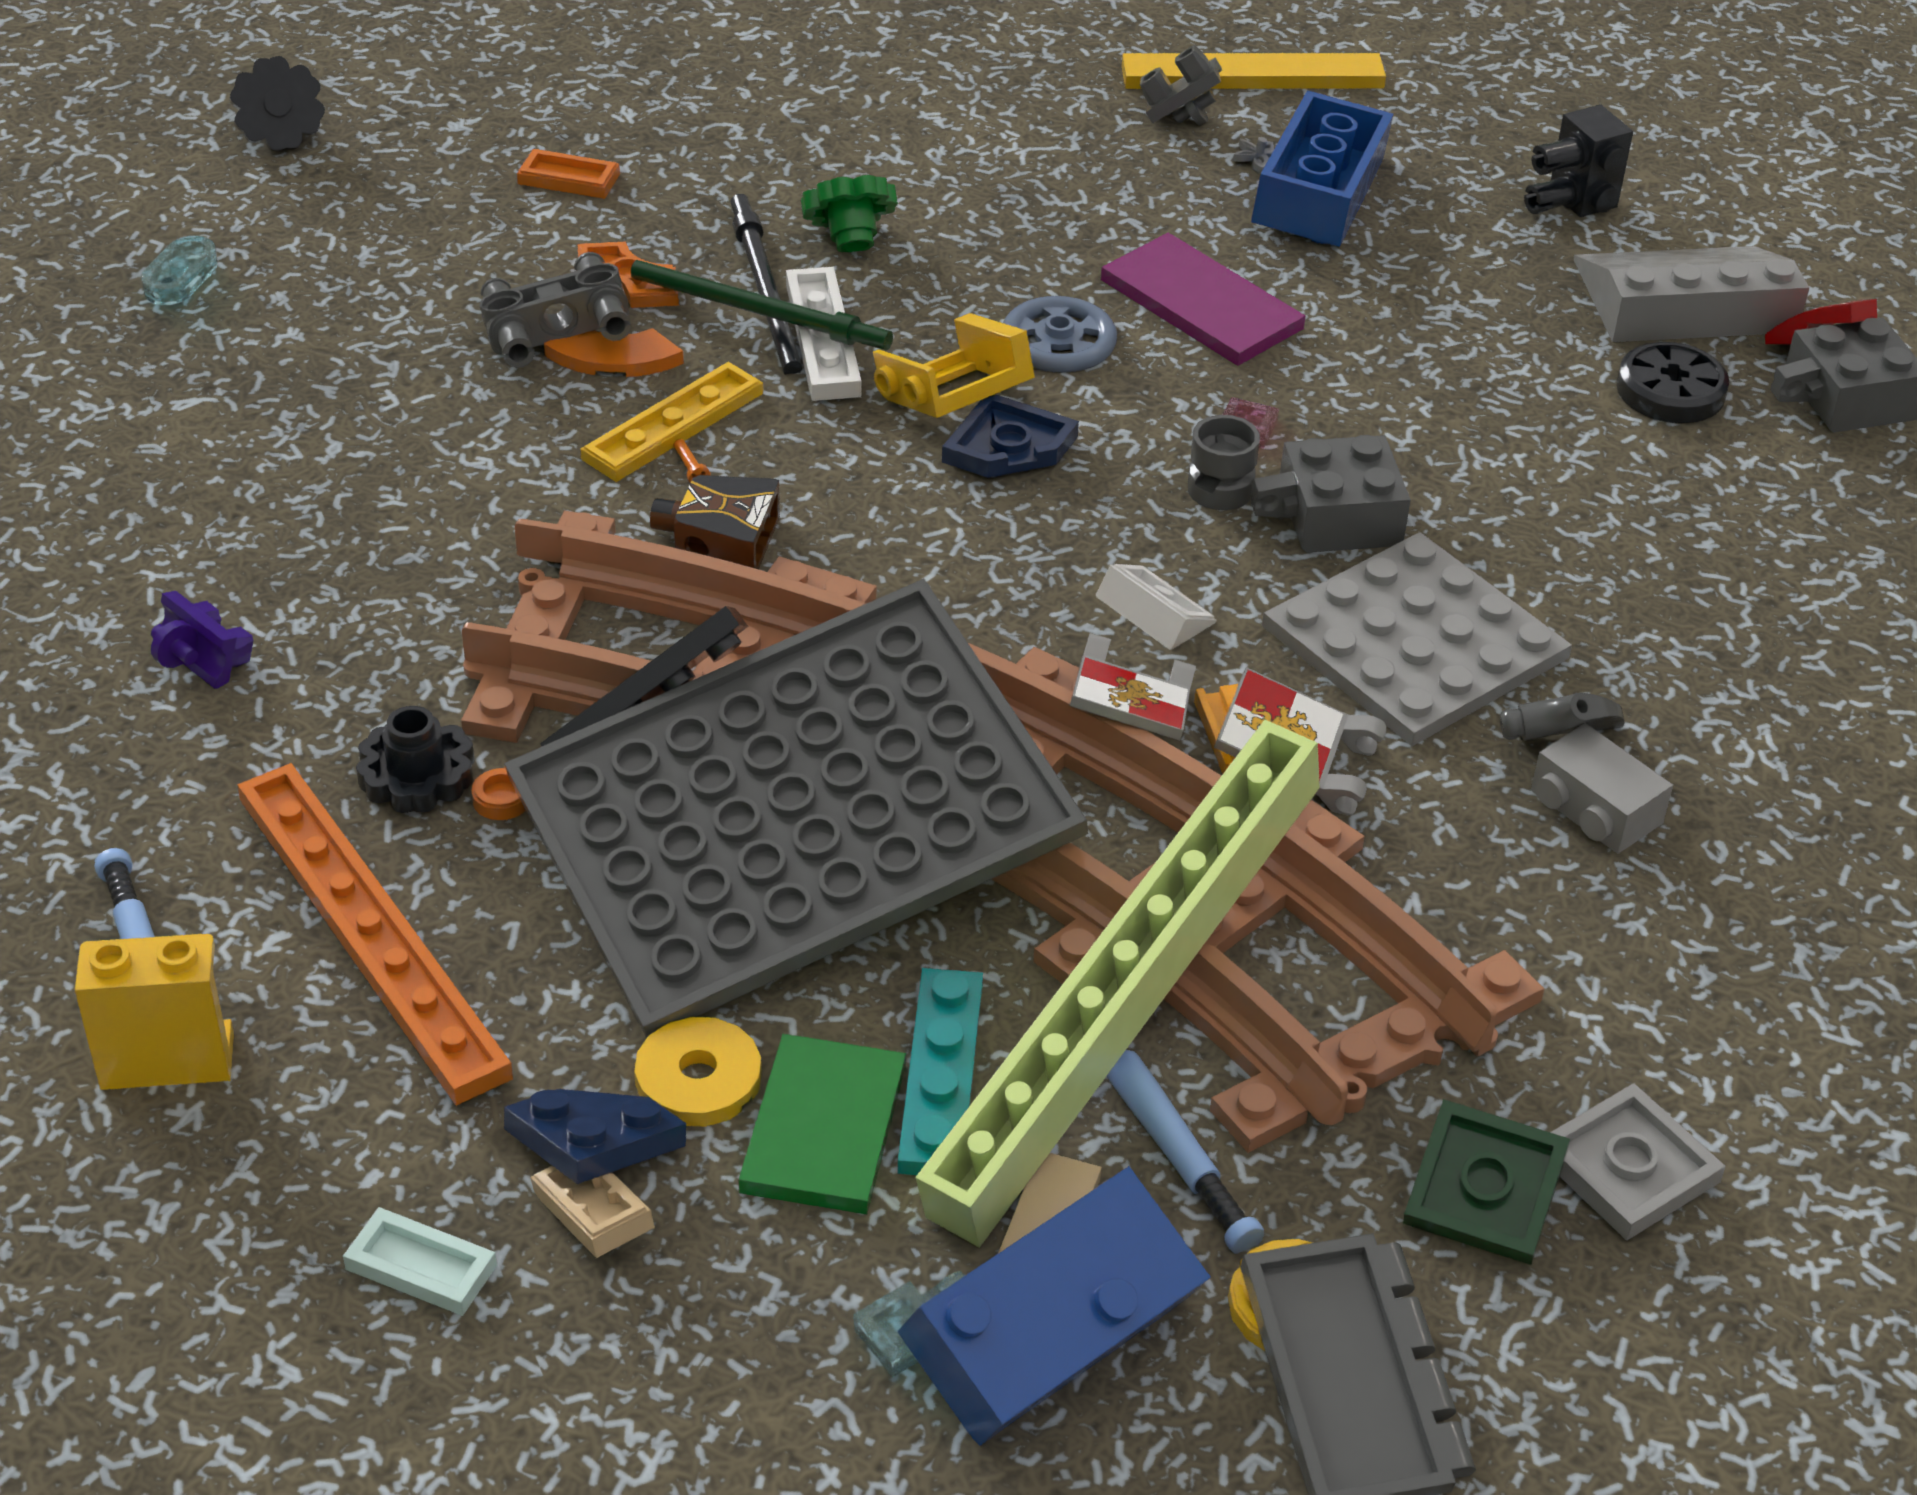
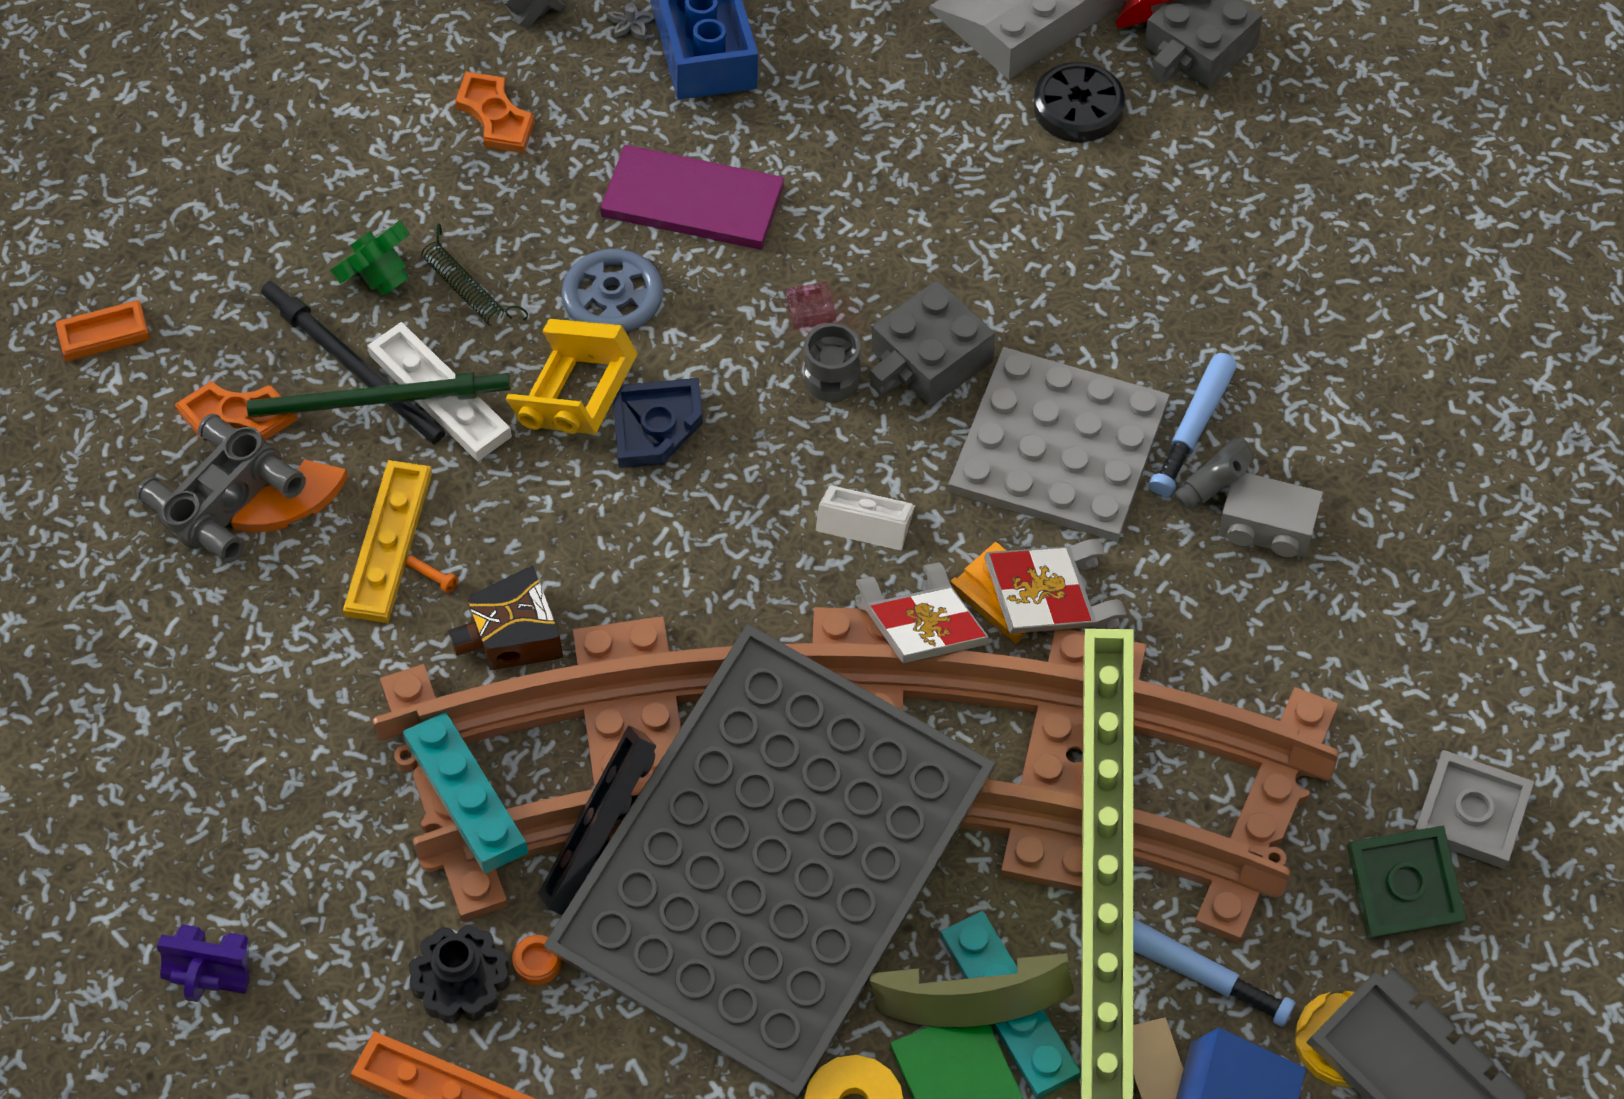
camera: 30 degrees left, 15 degrees up
(544, 609) = (465, 792): none -> teal plate
(901, 1030) = (974, 1001): none -> olive slope
(934, 290) = (439, 231): none -> dark green piece
(1067, 170) = (503, 123): none -> orange tile
(1595, 675) = (1196, 418): none -> light blue piece

